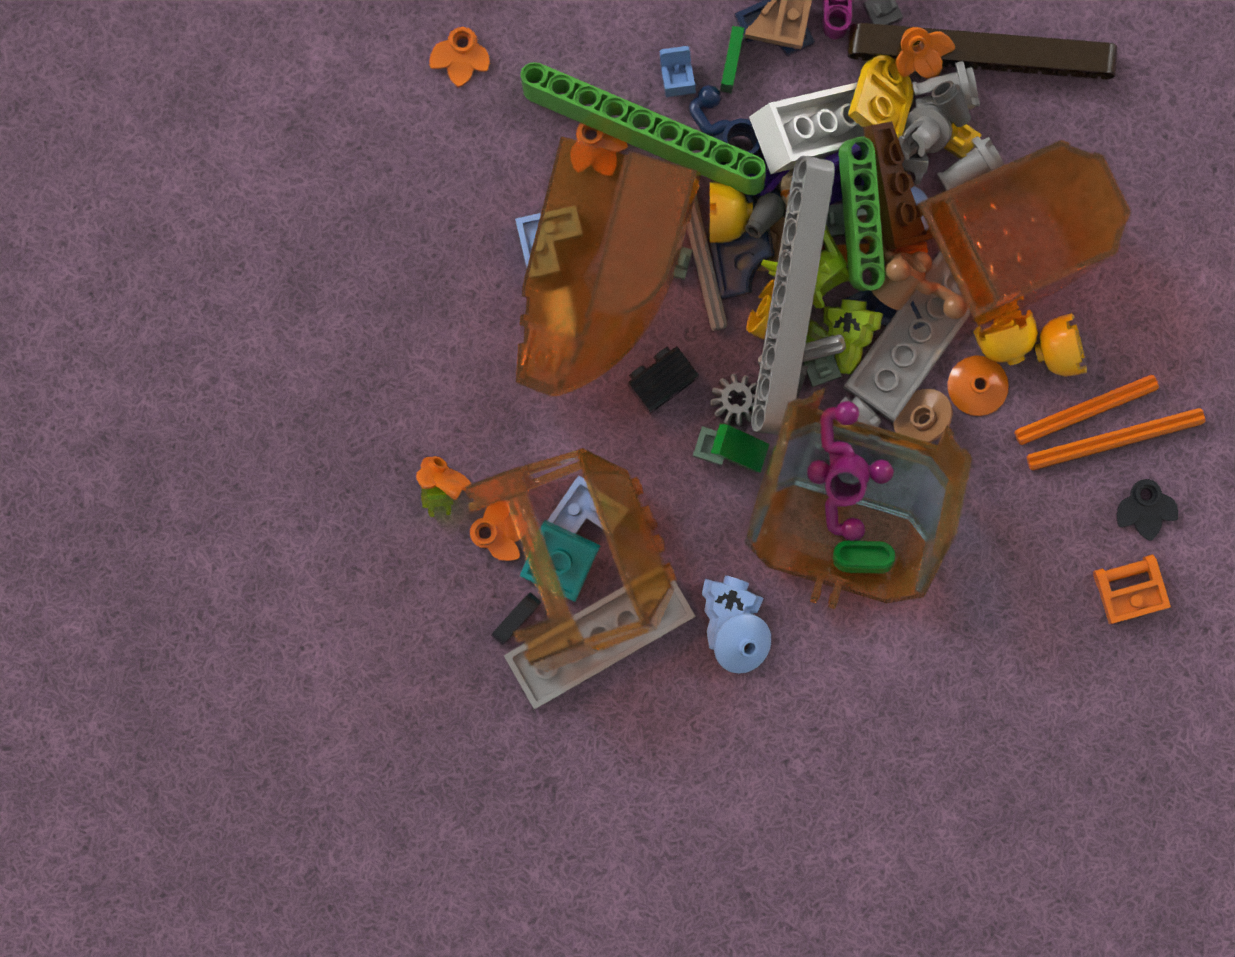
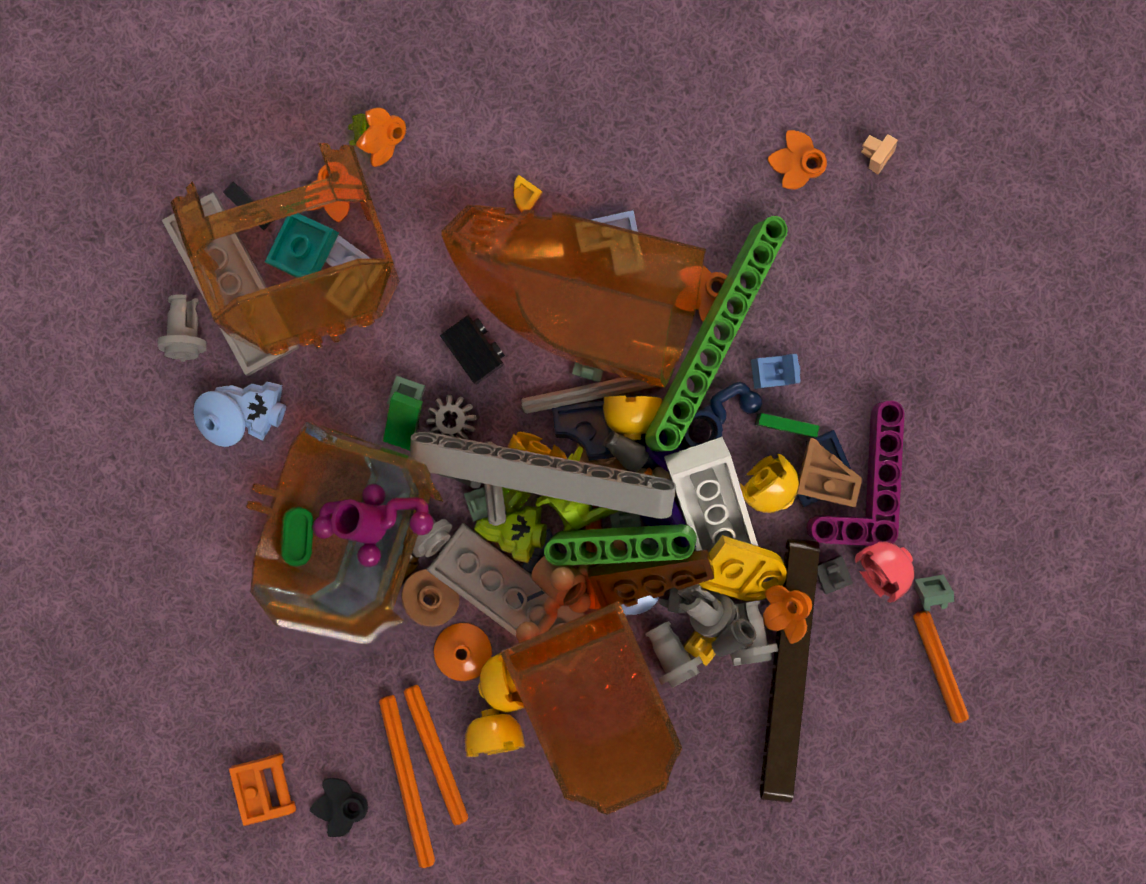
camera: 90 degrees right, 5 degrees up
(499, 331) = (525, 194): none -> yellow tile
(650, 683) = (182, 330): none -> light grey piece
(792, 71) = (772, 485): none -> yellow cylinder

